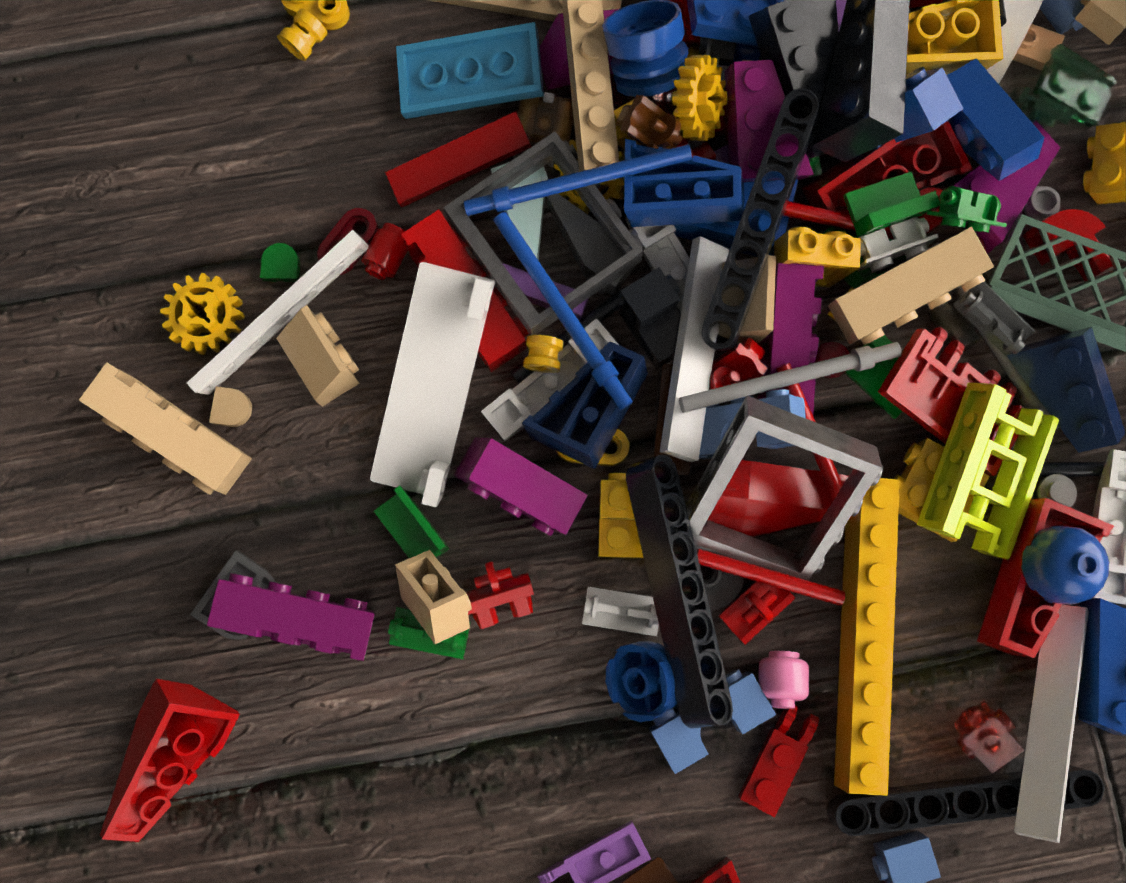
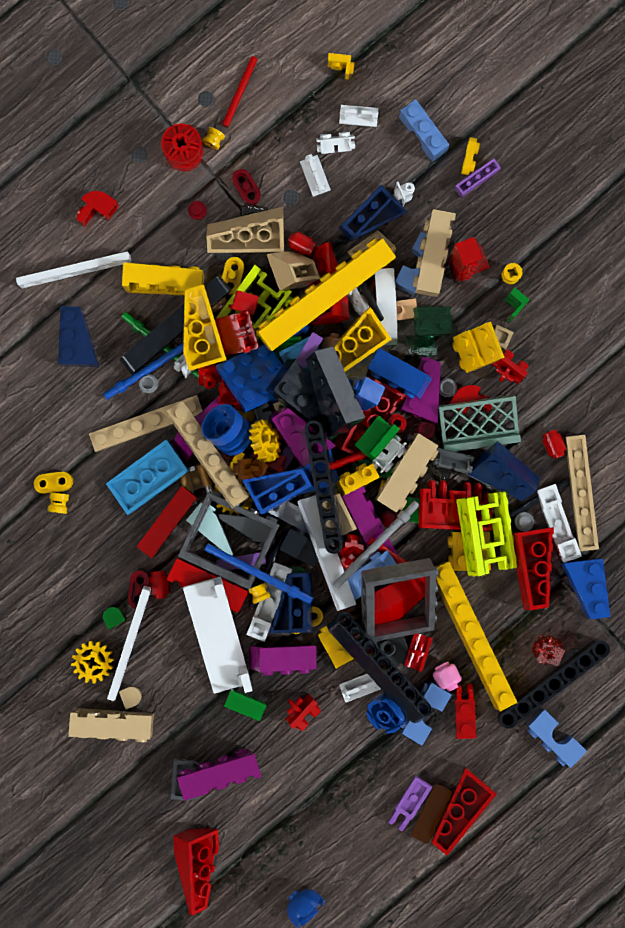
camera: 30 degrees left, 5 degrees up
(319, 362) = (158, 652): tan slope -> none
(409, 634) = (280, 745): green hinge -> none
(433, 596) = (274, 730): tan brick -> none
(504, 198) = (204, 537): blue bar -> none
(771, 577) = (416, 636): red bar -> none
(967, 206) = (409, 426): green hinge -> none
(1052, 727) = (571, 629): white tile -> none
(1065, 565) = (539, 559): blue cylinder -> none

